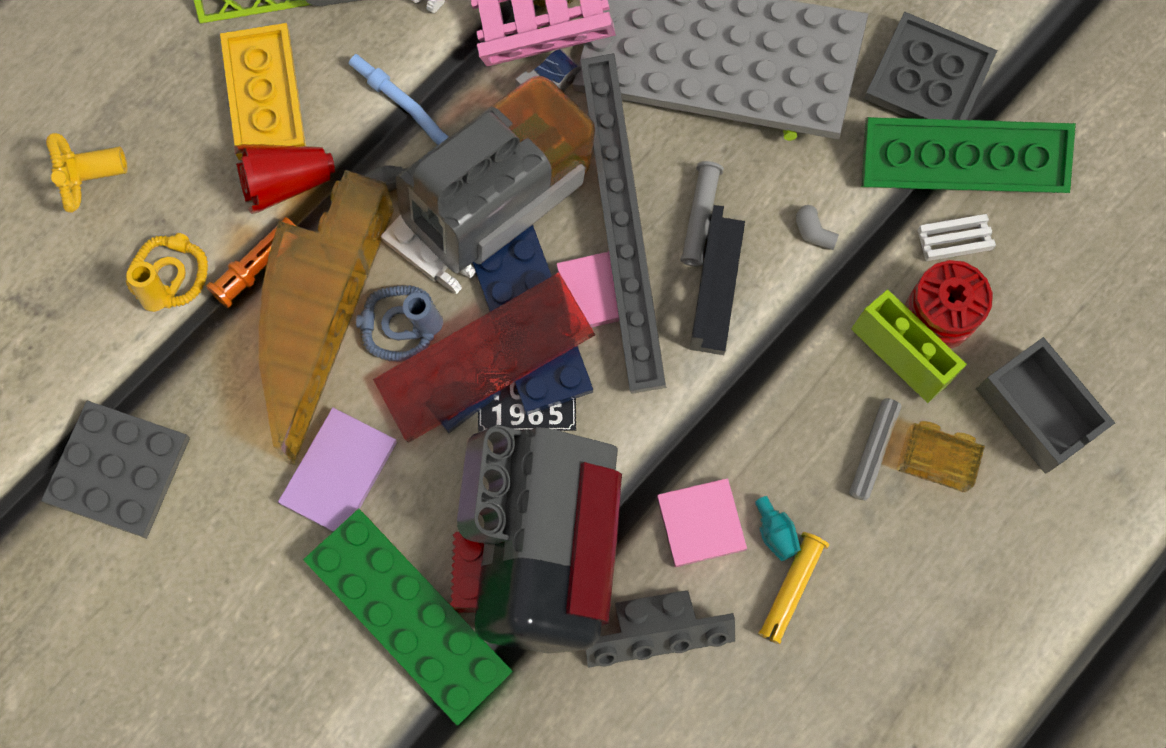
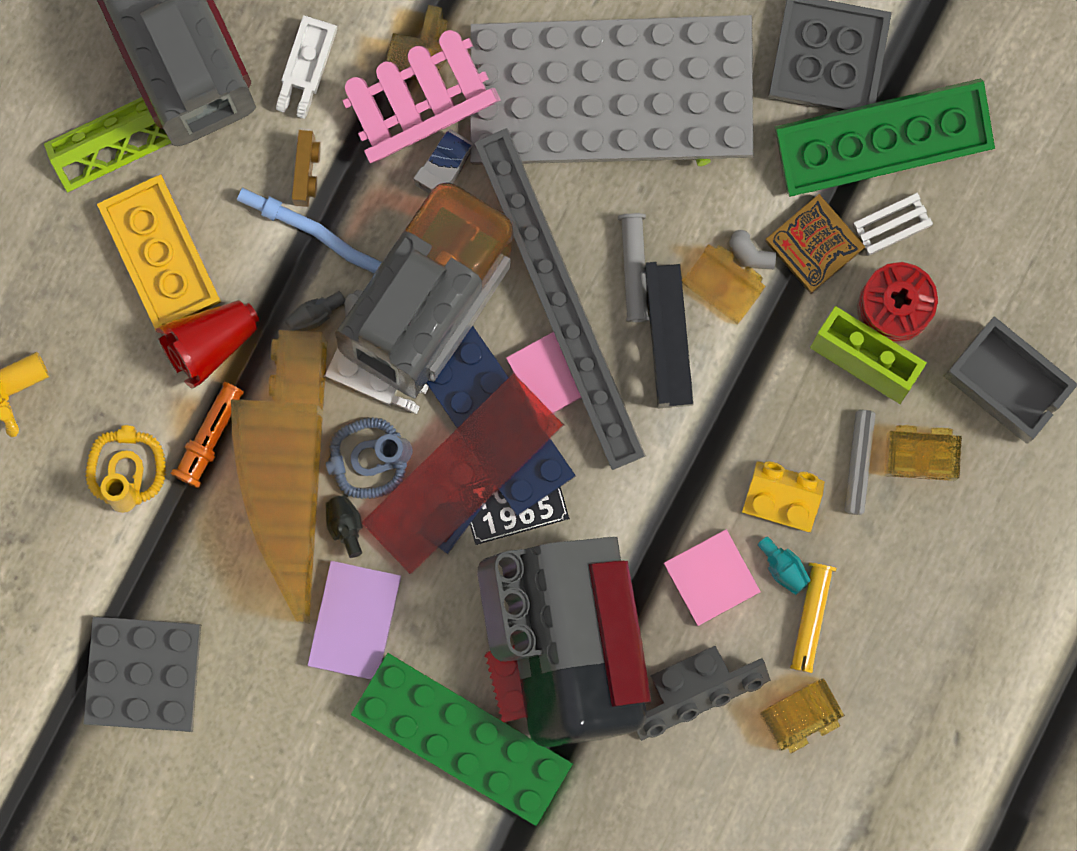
camera: 10 degrees left, 10 degrees up
(356, 376) = (344, 523): none -> pearl dark grey piece
(415, 62) = (304, 183): none -> pearl gold plate
(759, 684) = (802, 715): none -> clear yellow brick
(783, 249) = (724, 283): none -> clear yellow bracket
(792, 461) = (784, 496): none -> yellow bracket
(877, 236) = (815, 243): none -> pearl gold tile

